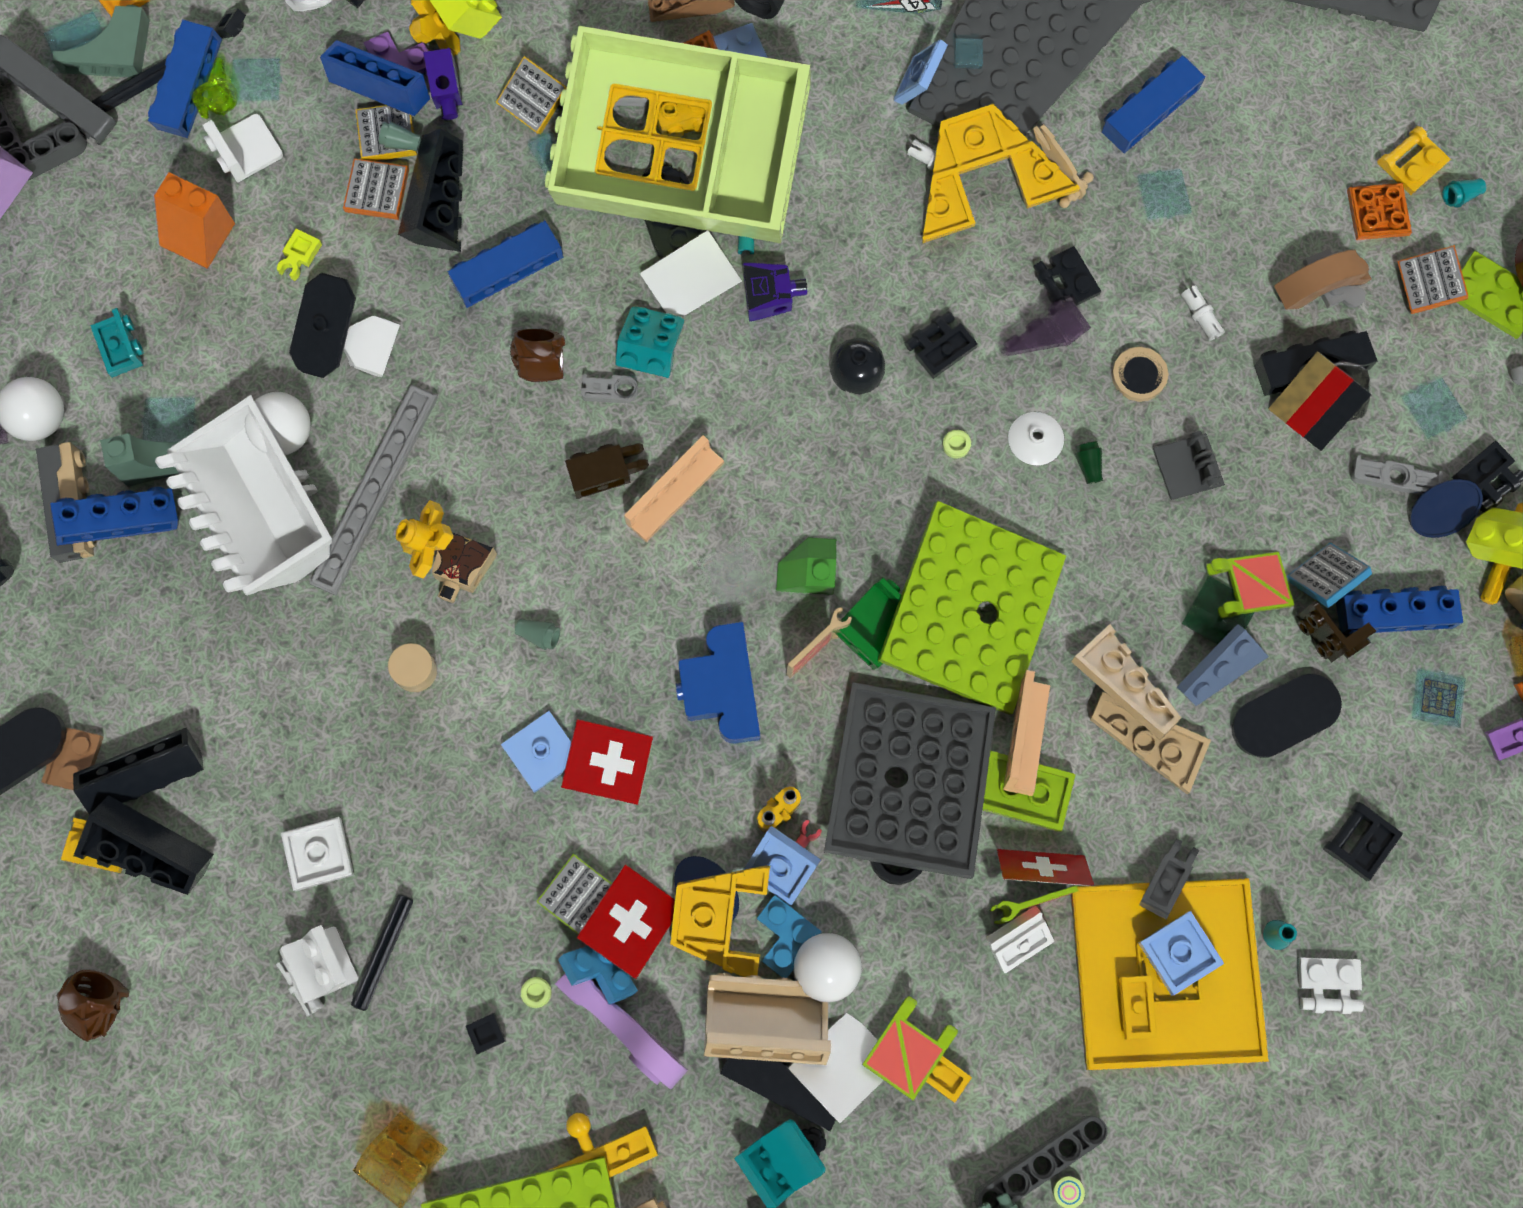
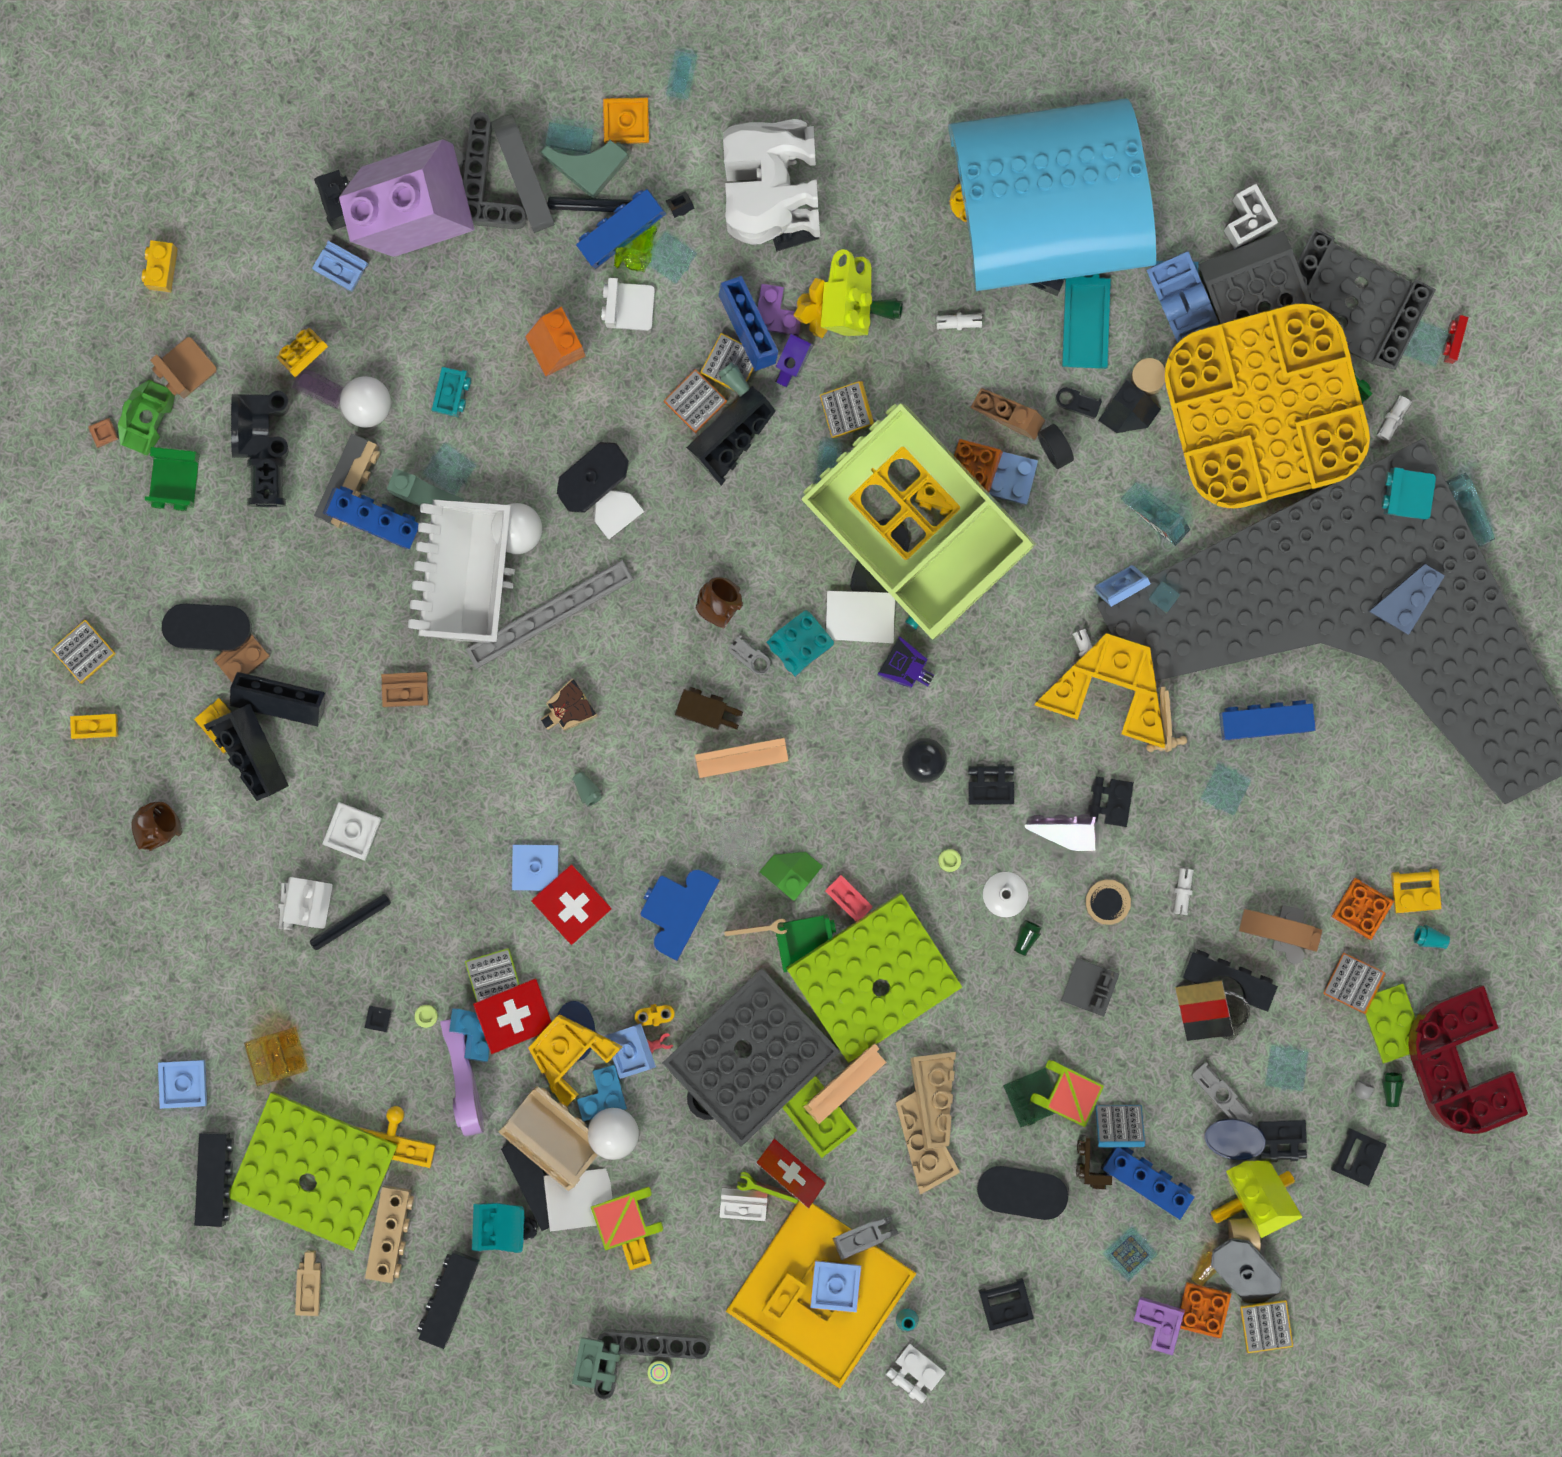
camera: 40 degrees right, 10 degrees up
(273, 667) = (405, 689): none -> medium nougat plate
(298, 250) = (614, 409): neon yellow plate -> none
(412, 667) = (491, 755): tan piece -> none
(424, 538) = (557, 677): yellow plant -> none
(505, 263) = (743, 519): blue brick -> none
(886, 550) = (848, 898): none -> coral plate
(1223, 665) = (1004, 1132): sand blue wing -> none

